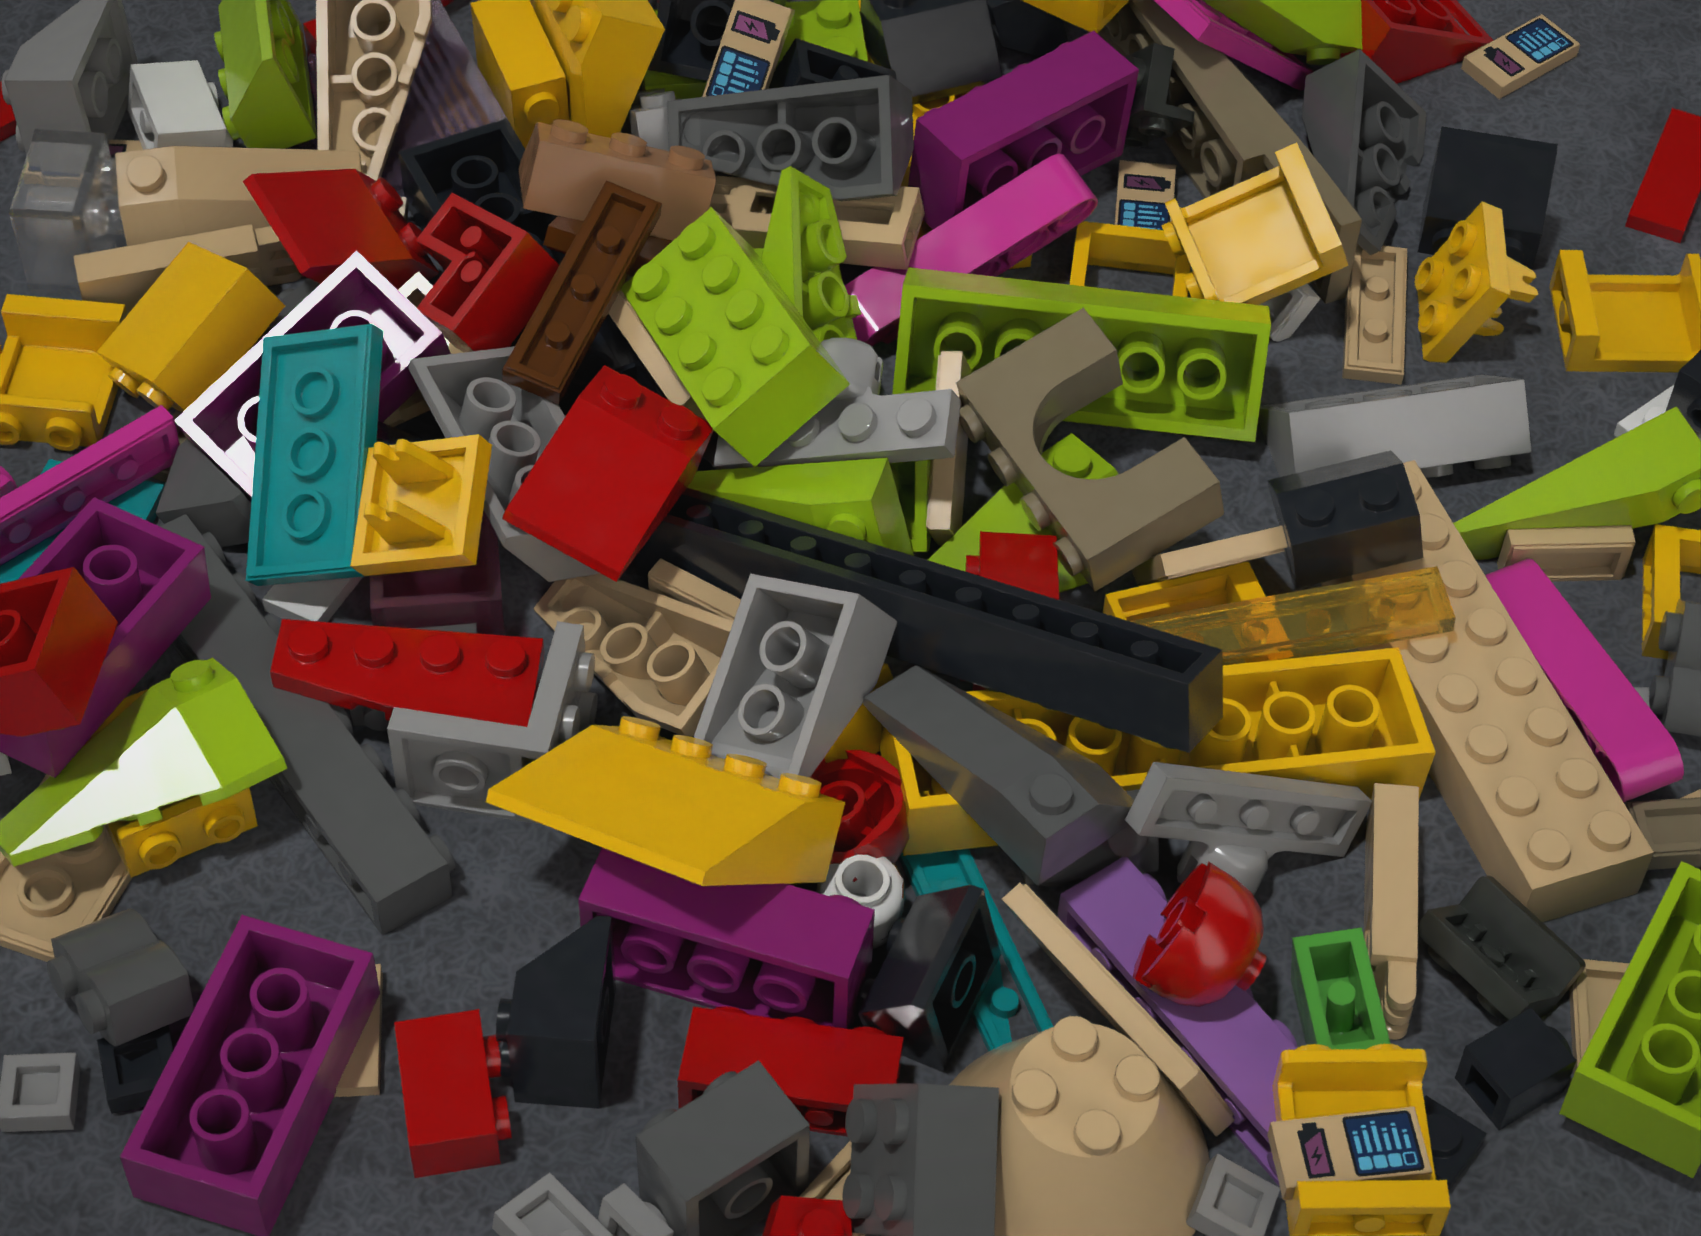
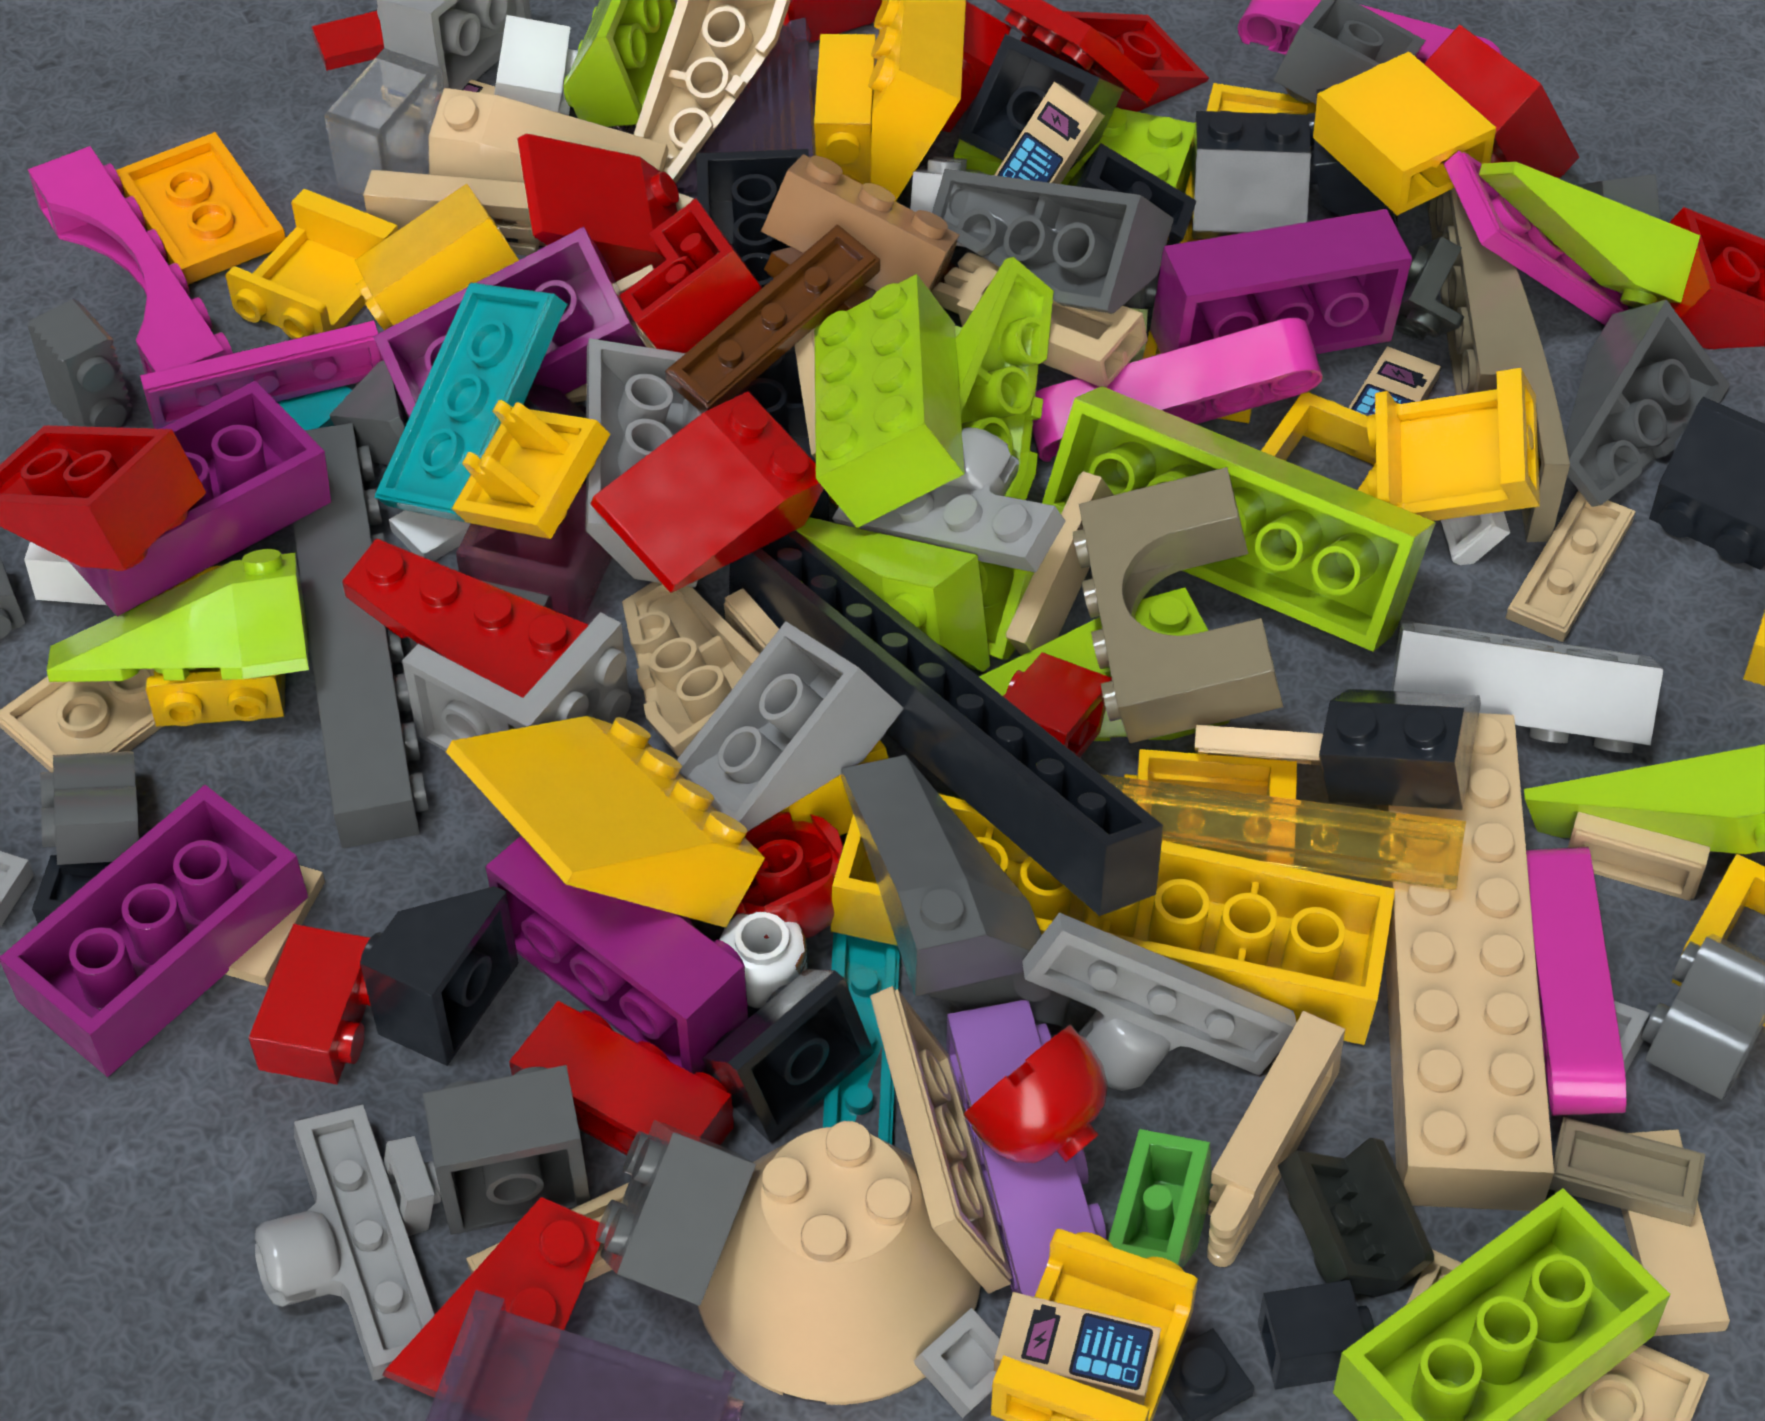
camera: 25 degrees right, 0 degrees up
(1468, 284) = (1667, 560): yellow plate -> none

